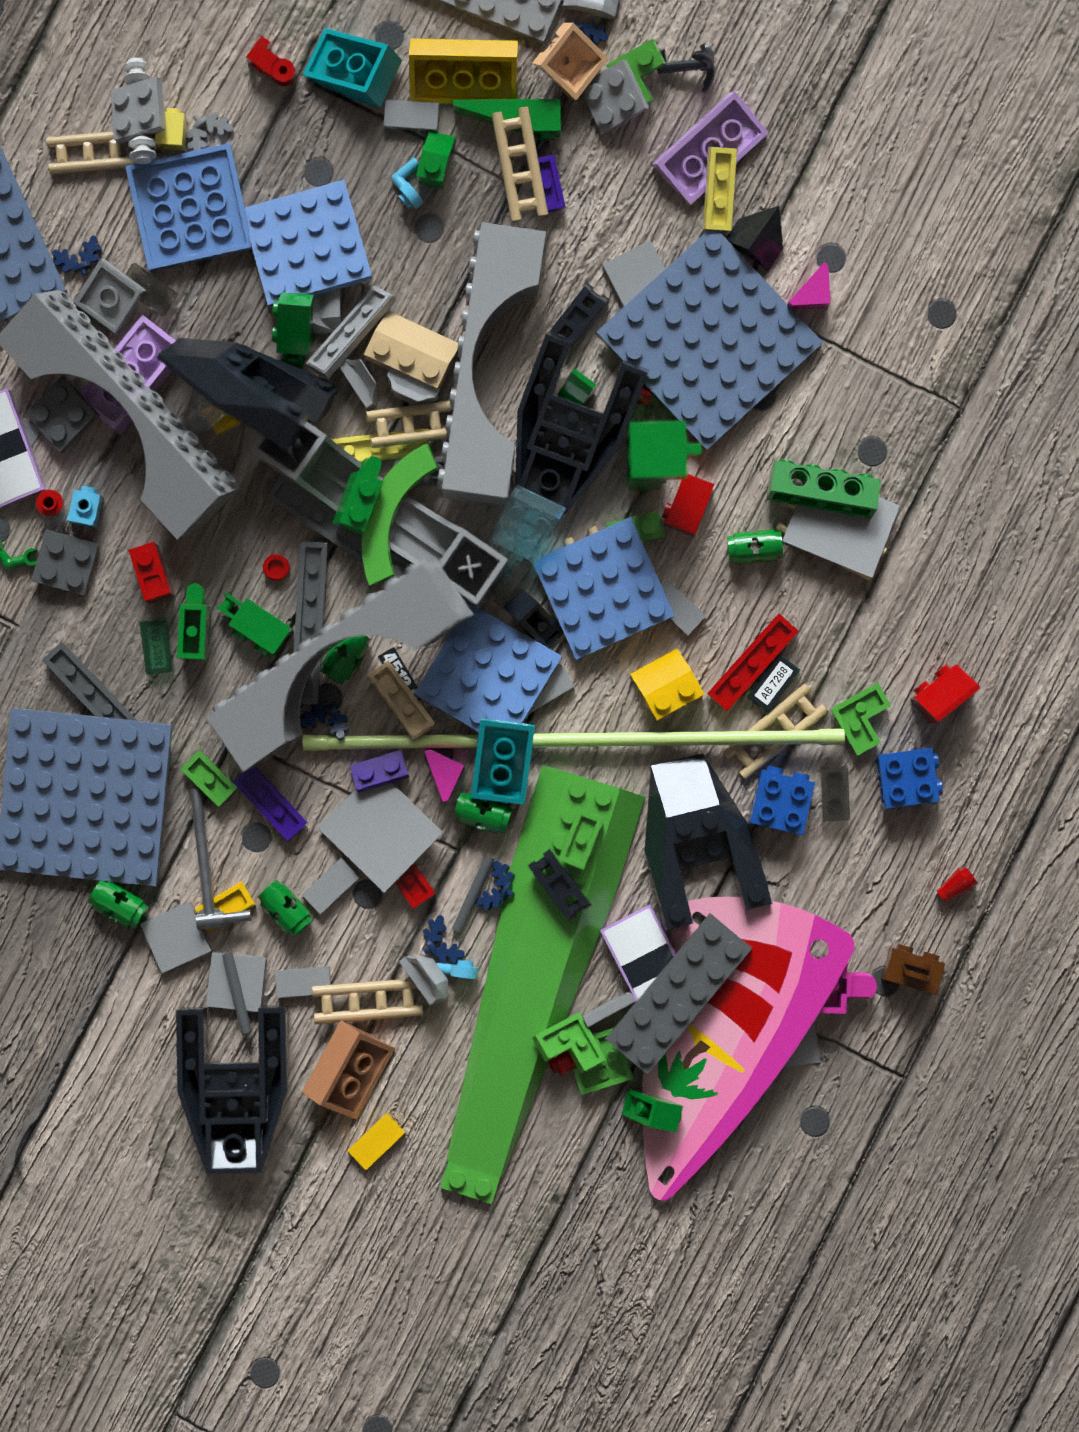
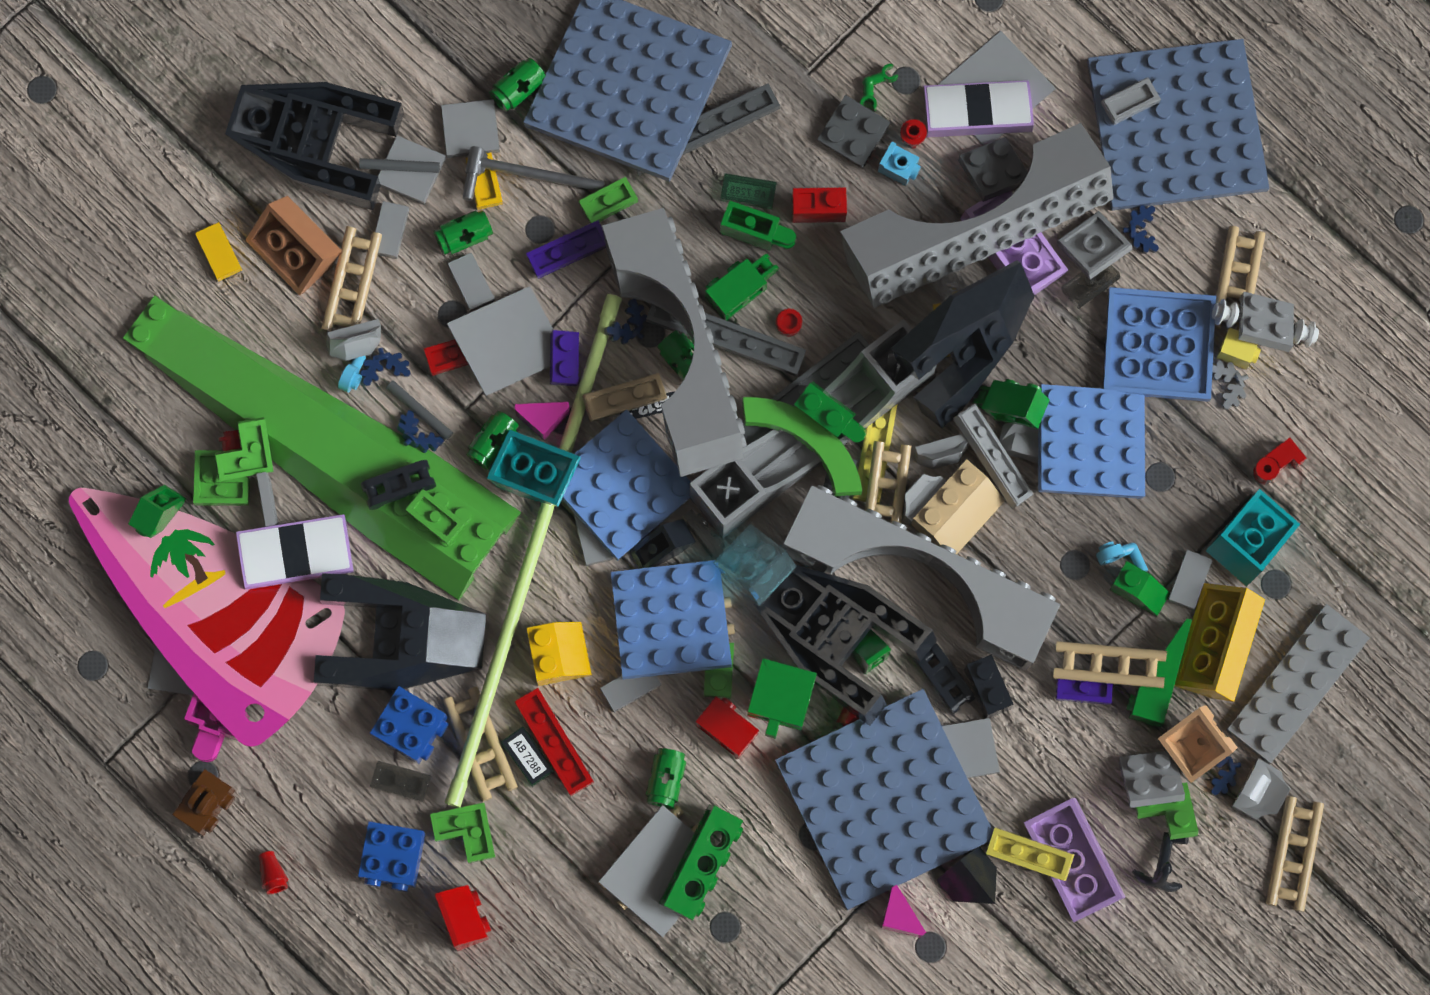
camera: 105 degrees right, 10 degrees down
(574, 272) = (988, 686): none -> black brick
(678, 993) = (258, 567): dark grey plate -> none

